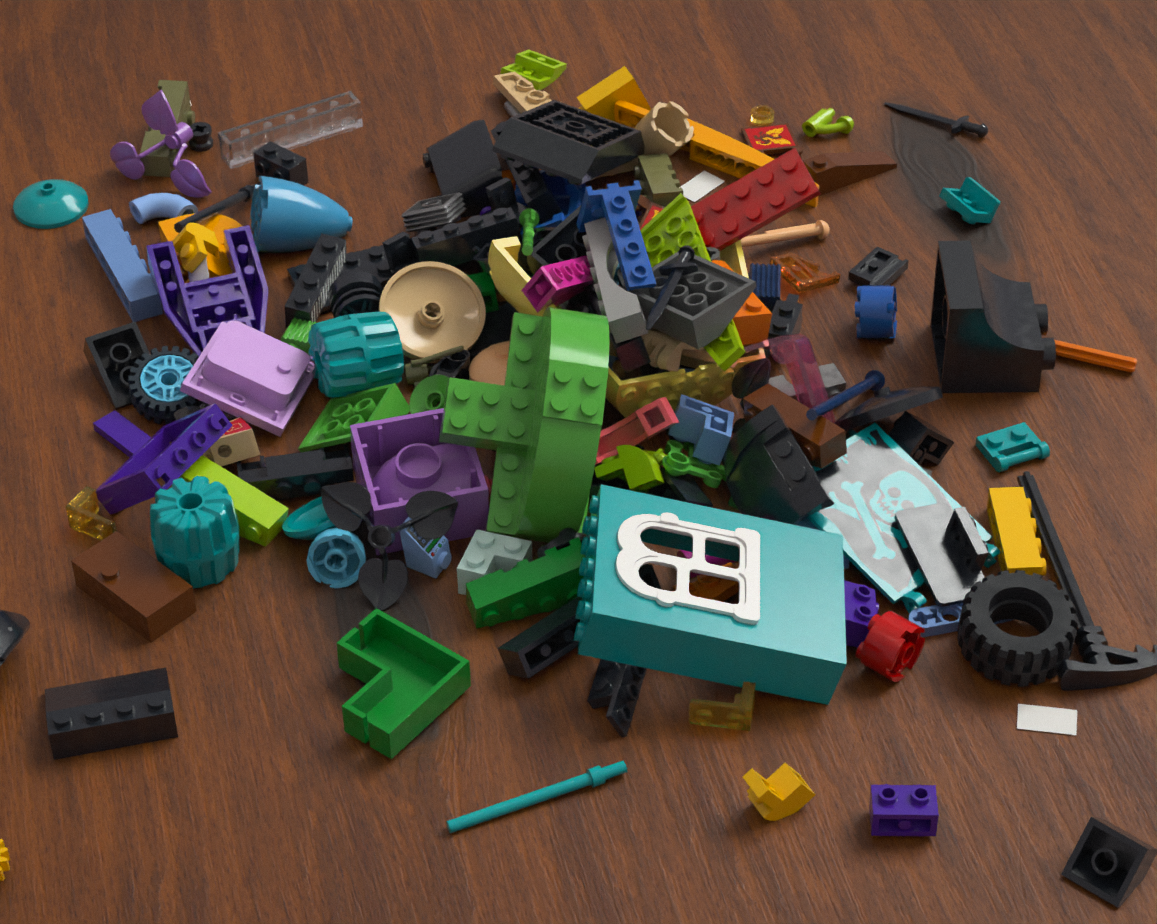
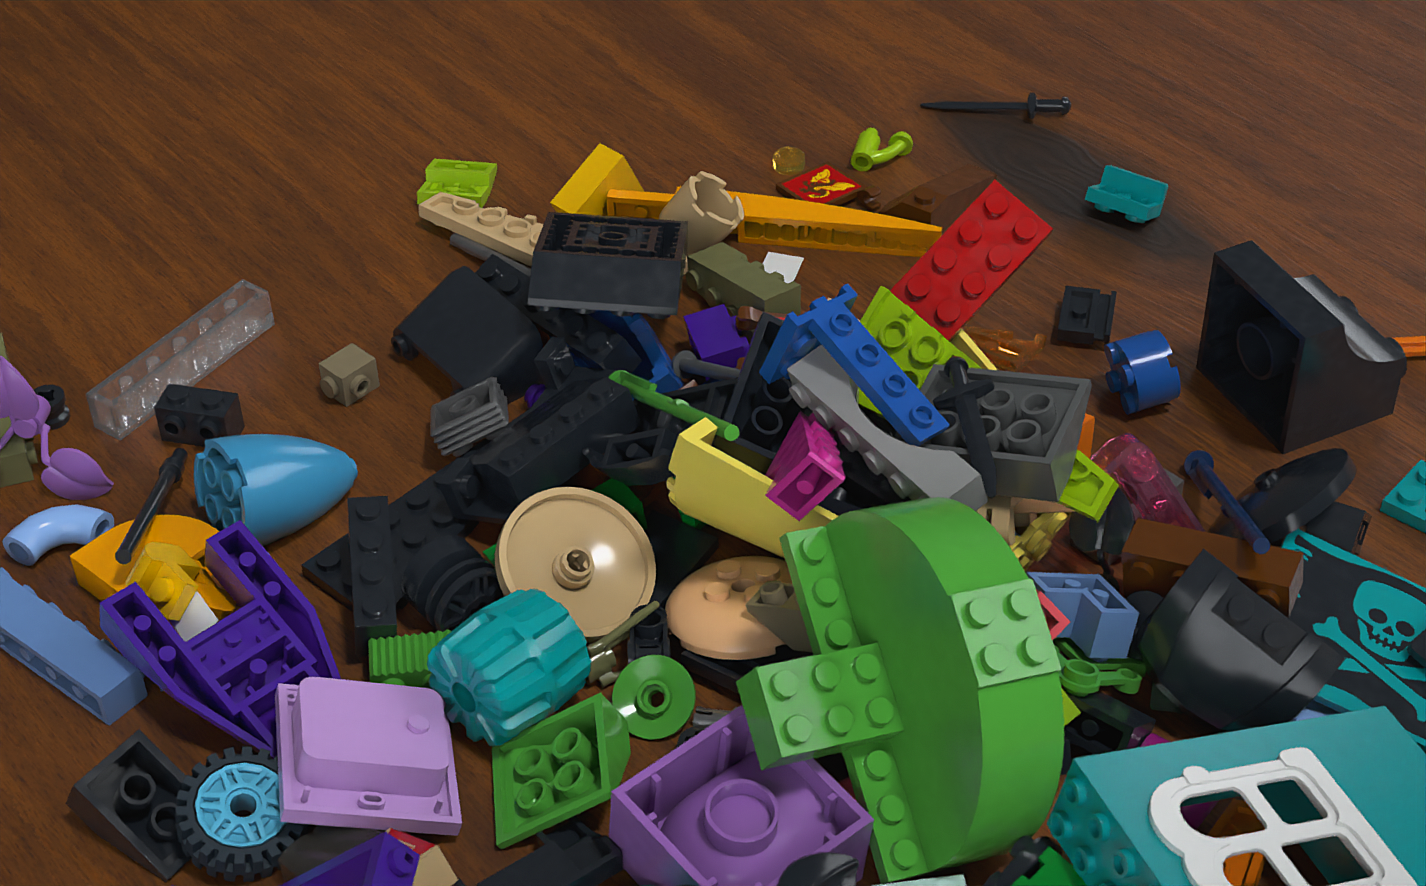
camera: 25 degrees left, 0 degrees up
(383, 168) = (348, 374): none -> dark tan brick

